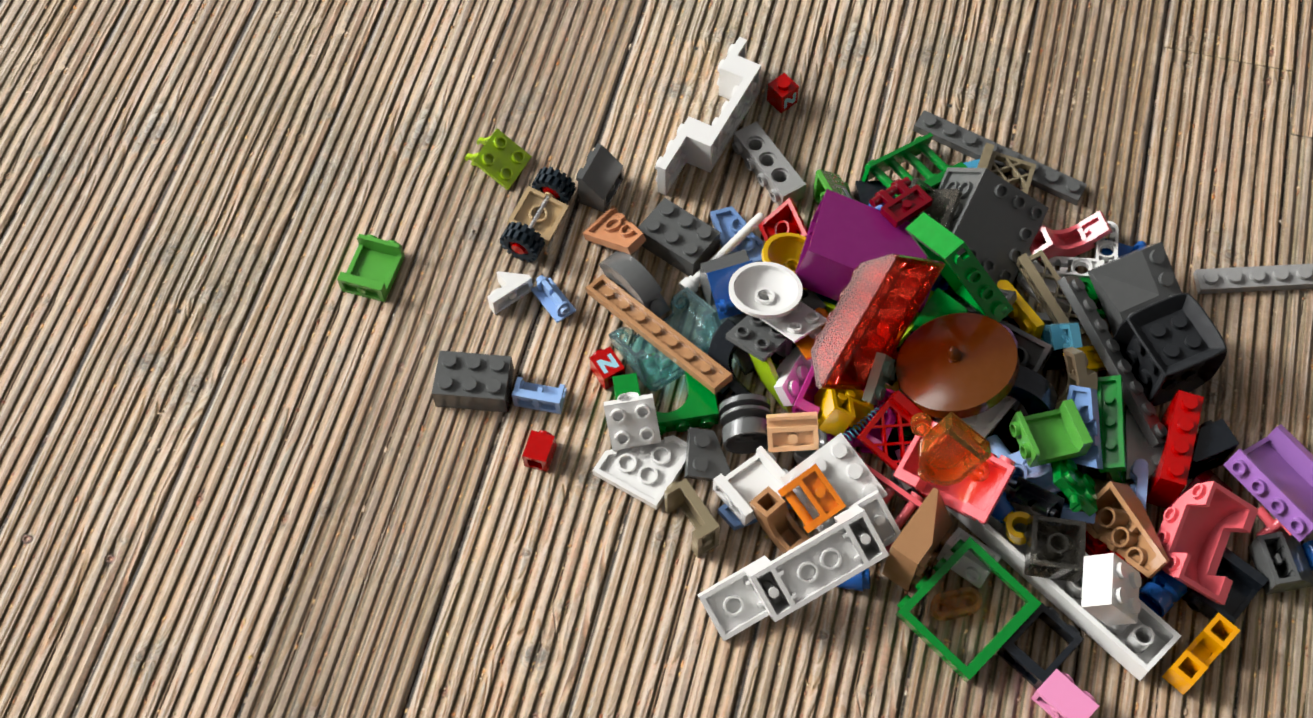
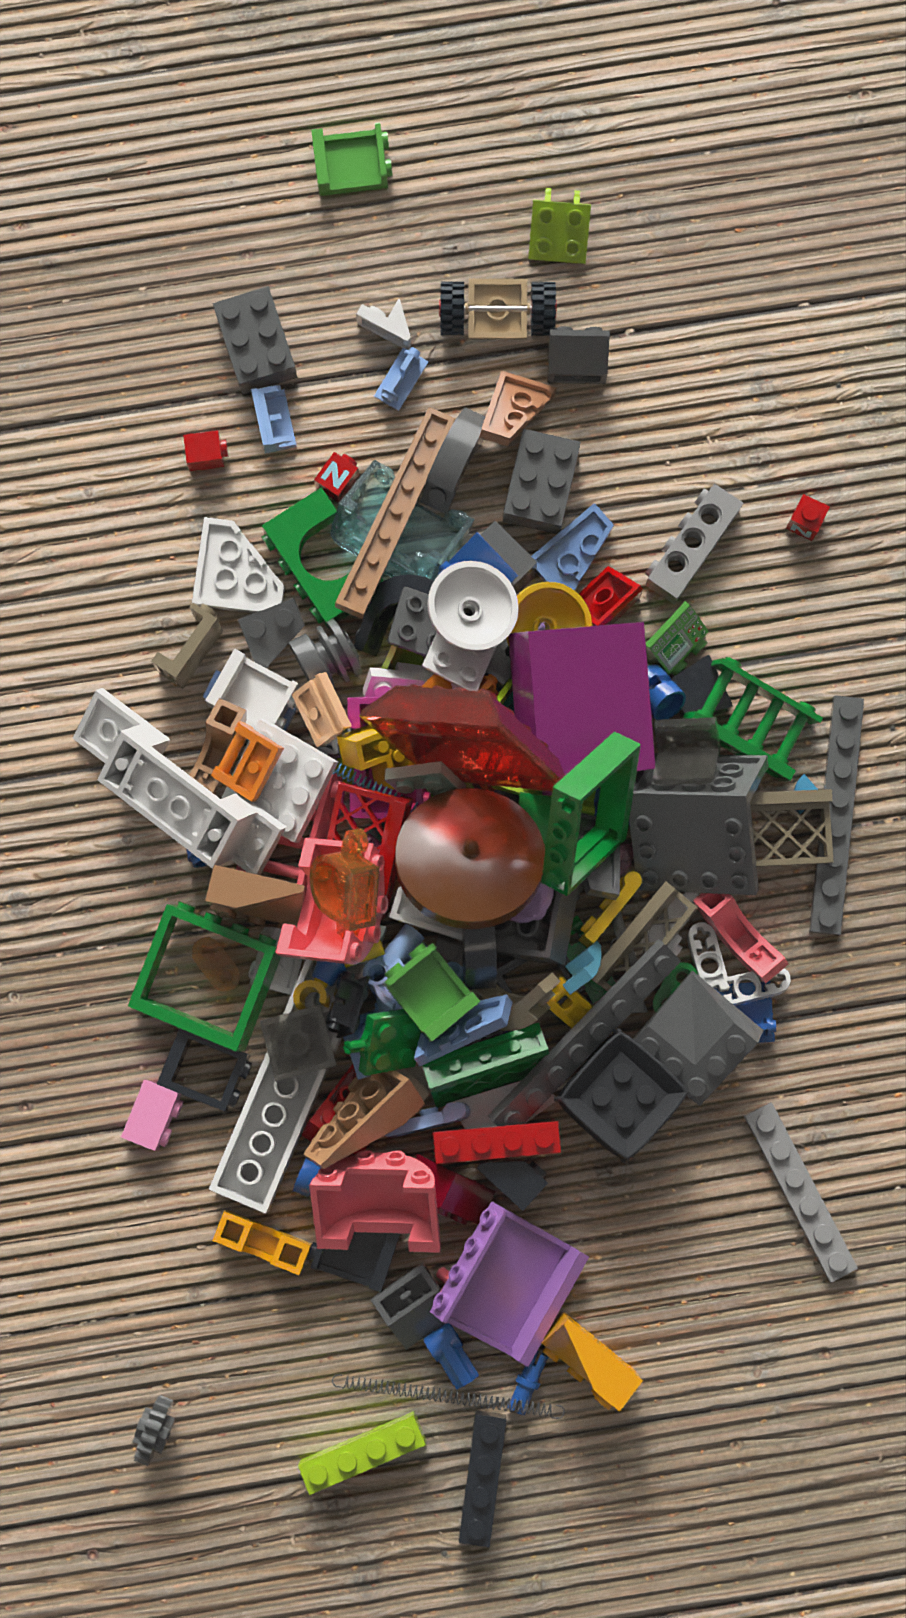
camera: 65 degrees right, 20 degrees up
(632, 421) = (270, 531): white plate -> none
(692, 282) = (485, 518): white piece -> none
(704, 143) = (680, 463): white bracket -> none
(905, 206) = (663, 722): dark red plate -> none
(1111, 589) = (269, 1117): white brick -> none

